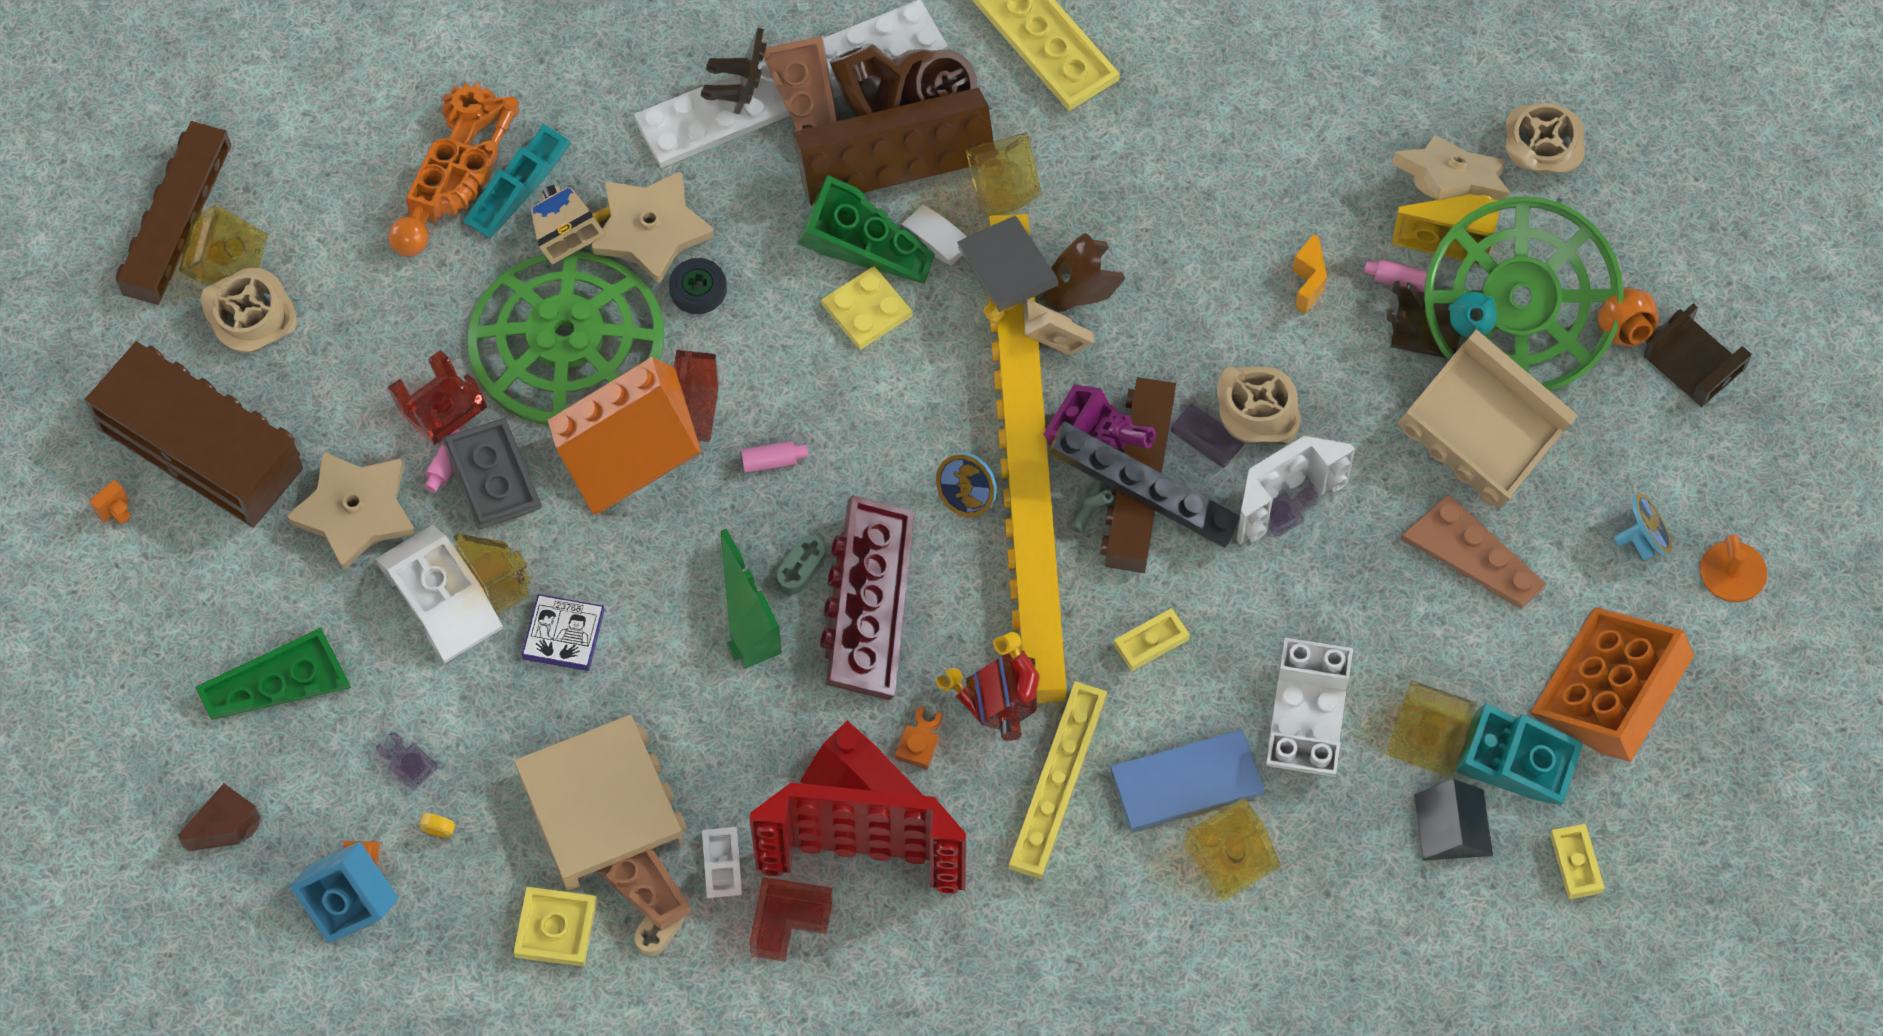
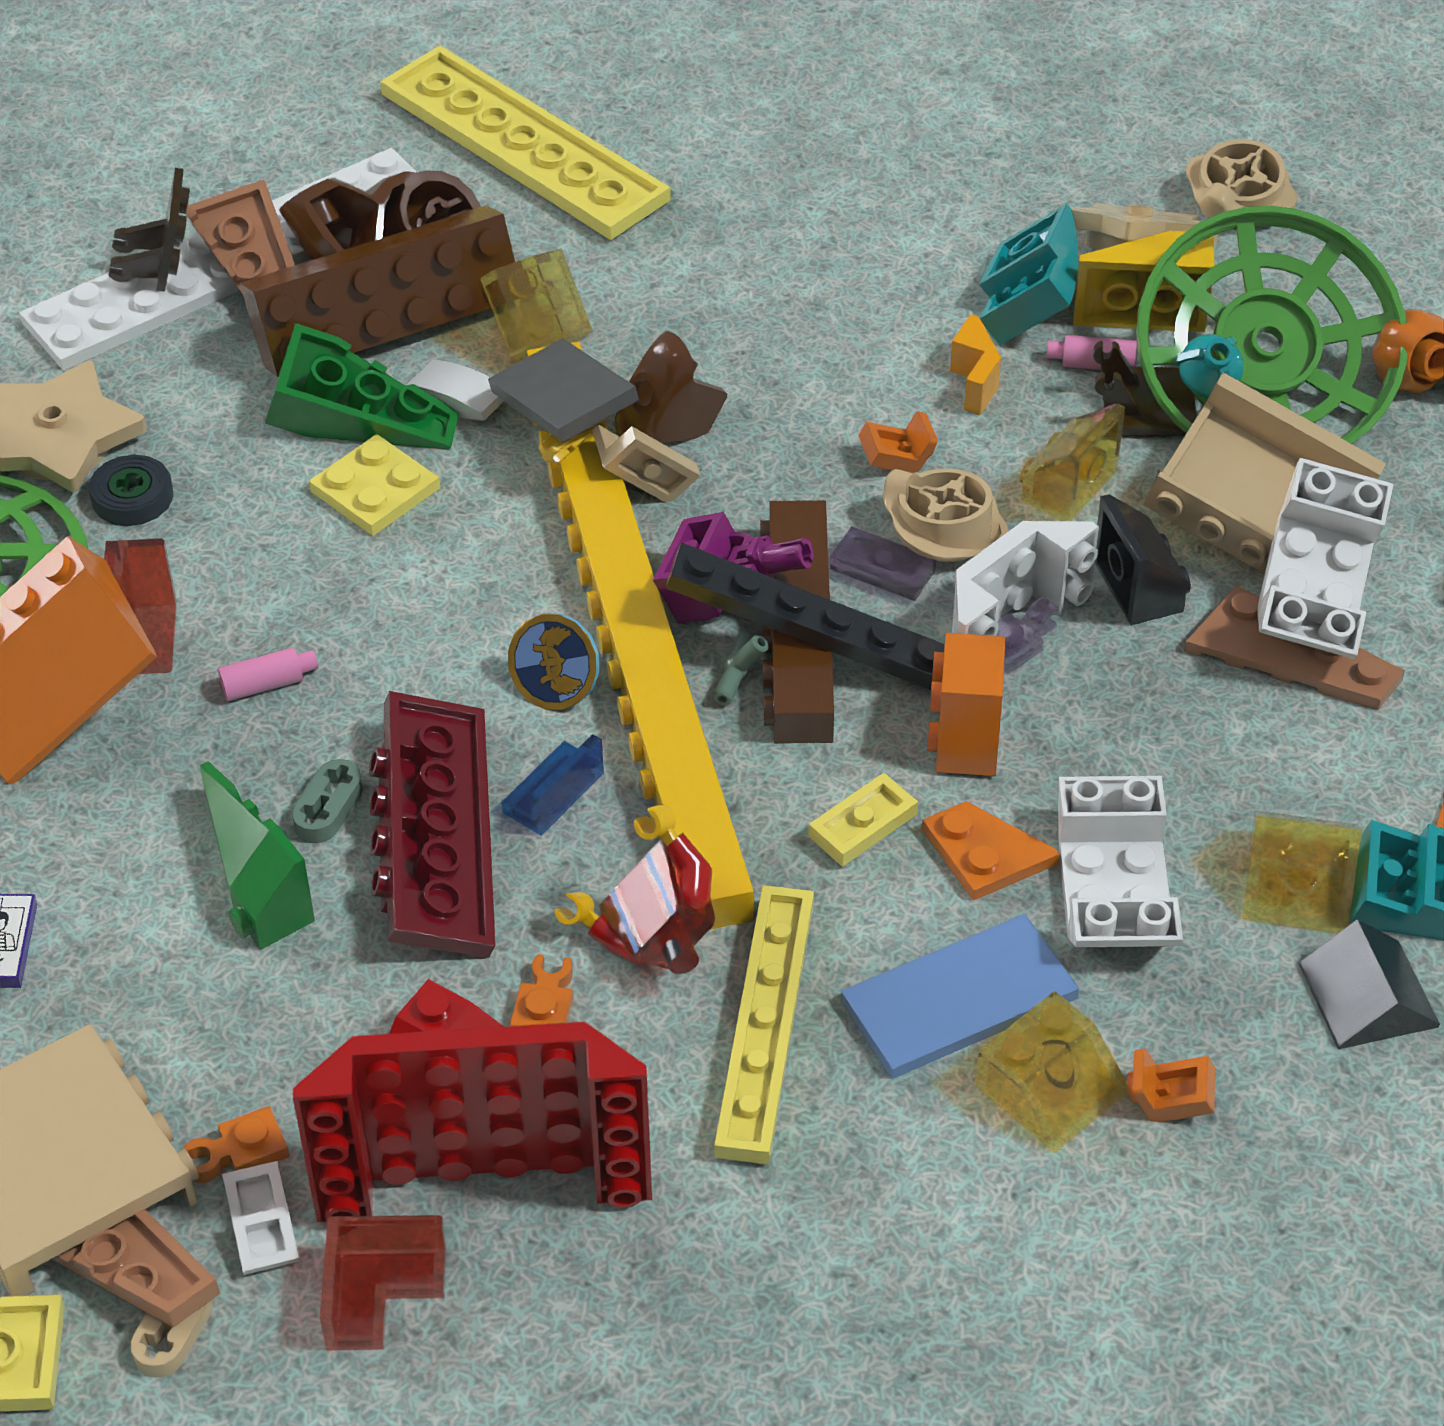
camera: 10 degrees left, 15 degrees down
(719, 808) = (243, 1143): none -> orange plate
(952, 578) = (555, 785): none -> clear blue panel
(1228, 674) = (985, 849): none -> orange wing
(1238, 567) = (969, 699): none -> orange brick
(1239, 337) = (899, 448): none -> orange bracket
(1306, 872) = (1172, 1088): none -> orange bracket
(1358, 376) = (1074, 464): none -> clear yellow slope
(1366, 204) = (1031, 276): none -> teal slope
(1384, 469) = (1138, 563): none -> black slope
(1504, 499) = (1322, 558): none -> white slope

